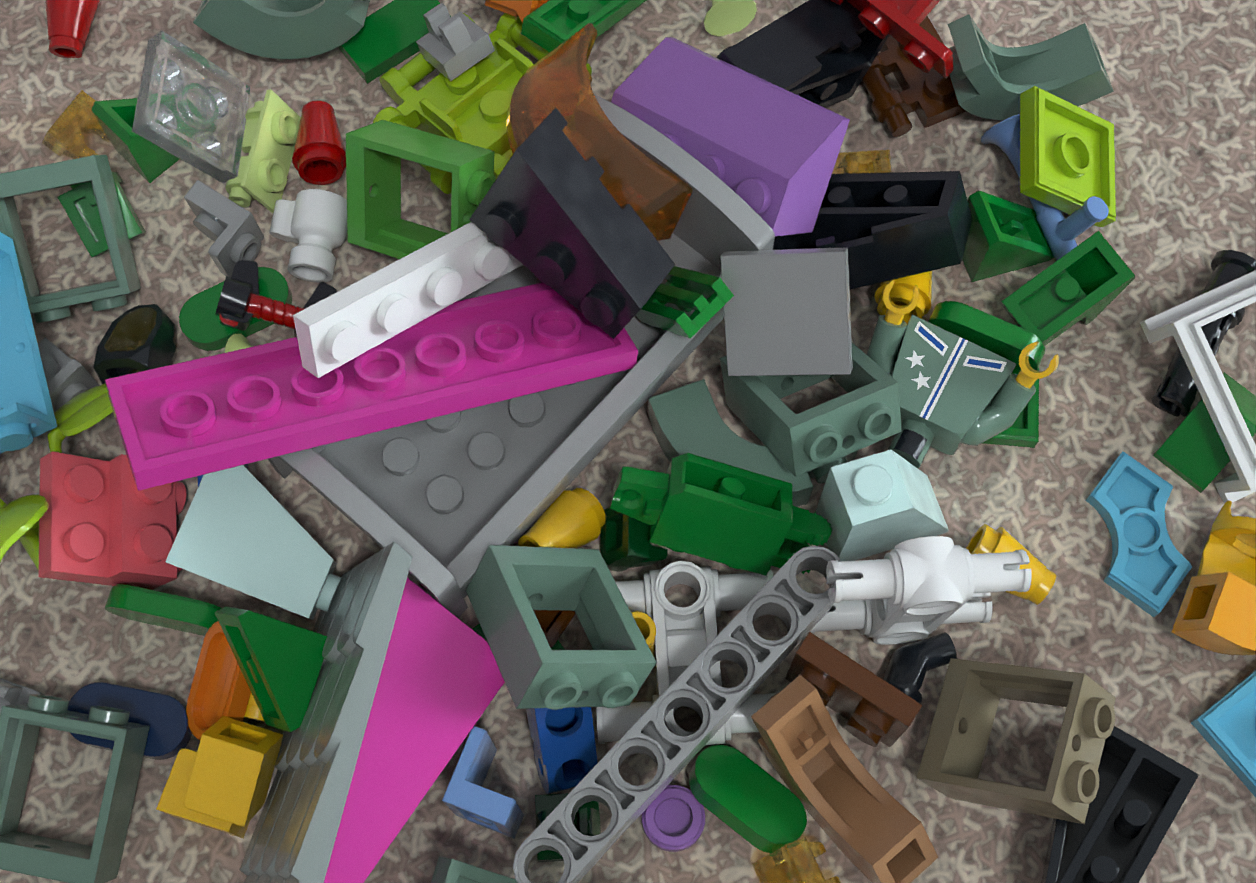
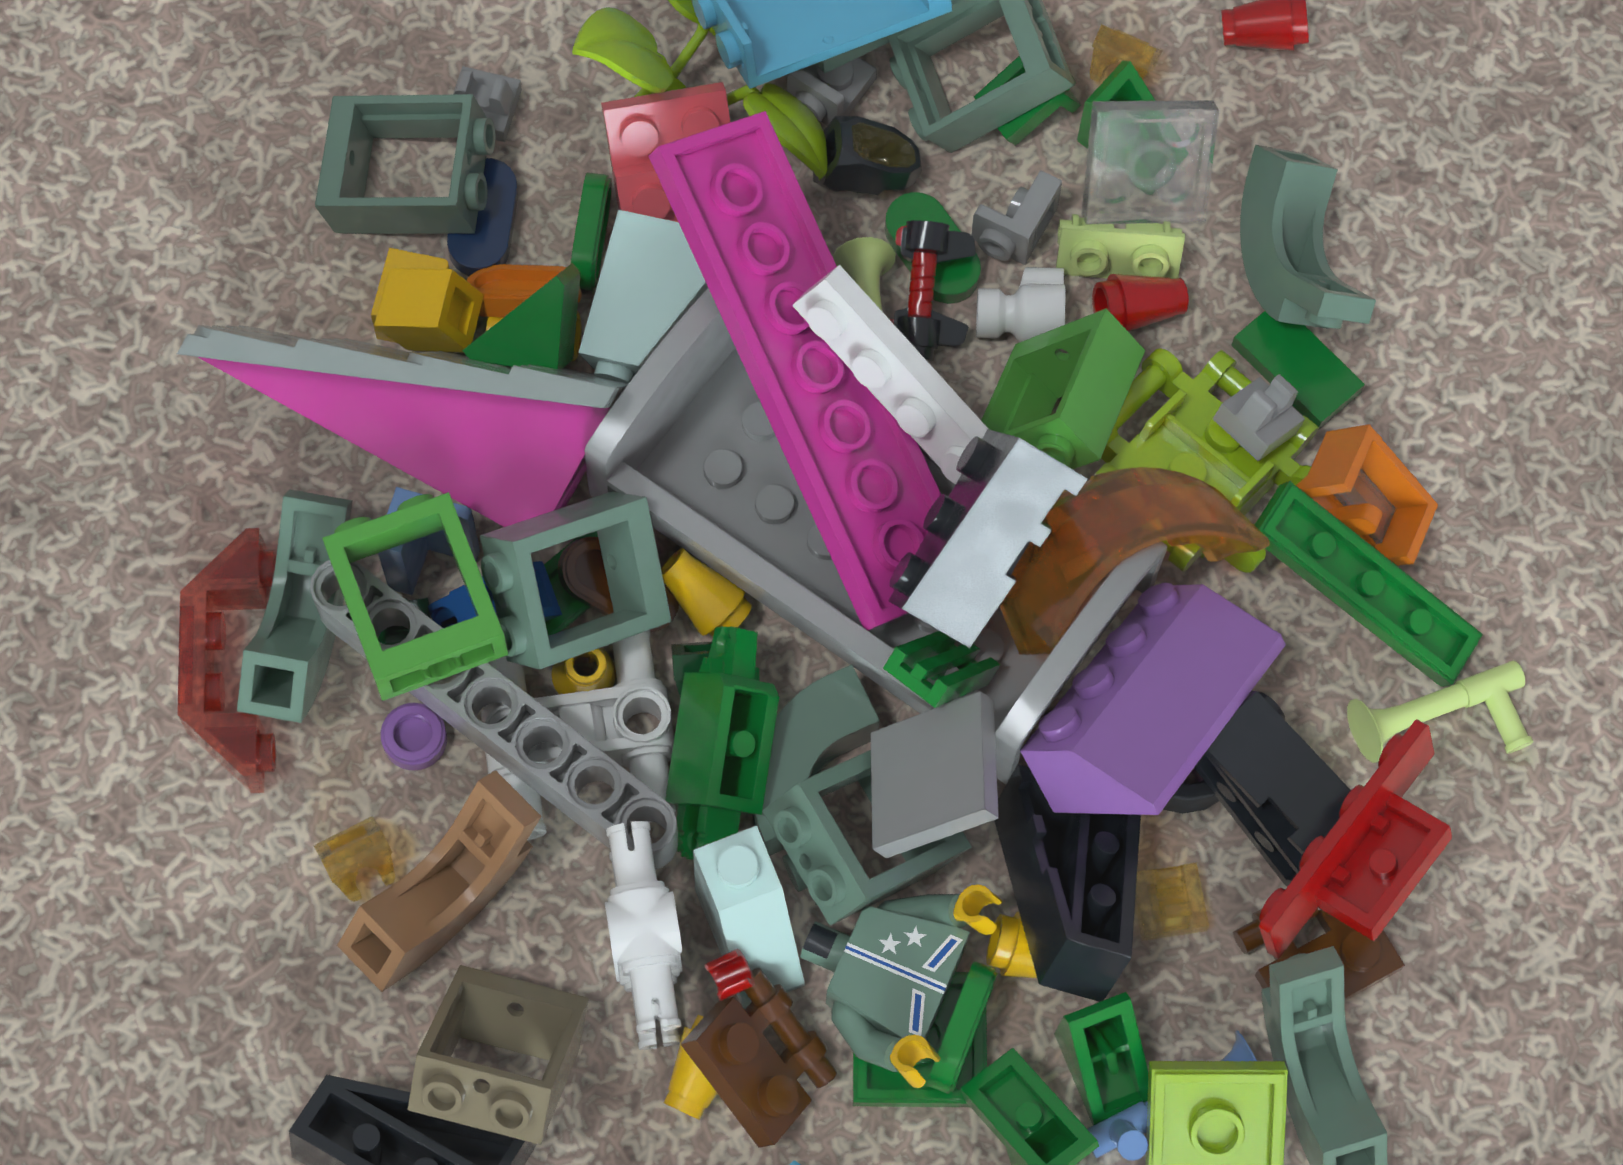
camera: 80 degrees right, 0 degrees up
(642, 762) = (434, 654): none -> bright green window
(747, 798) = (431, 801): green tile -> none
(869, 703) = (528, 905): reddish brown plate -> none
(911, 662) = (583, 964): black arm -> none
(949, 518) = (730, 974): none -> red hand
(1024, 513) = (745, 1067): none -> reddish brown plate

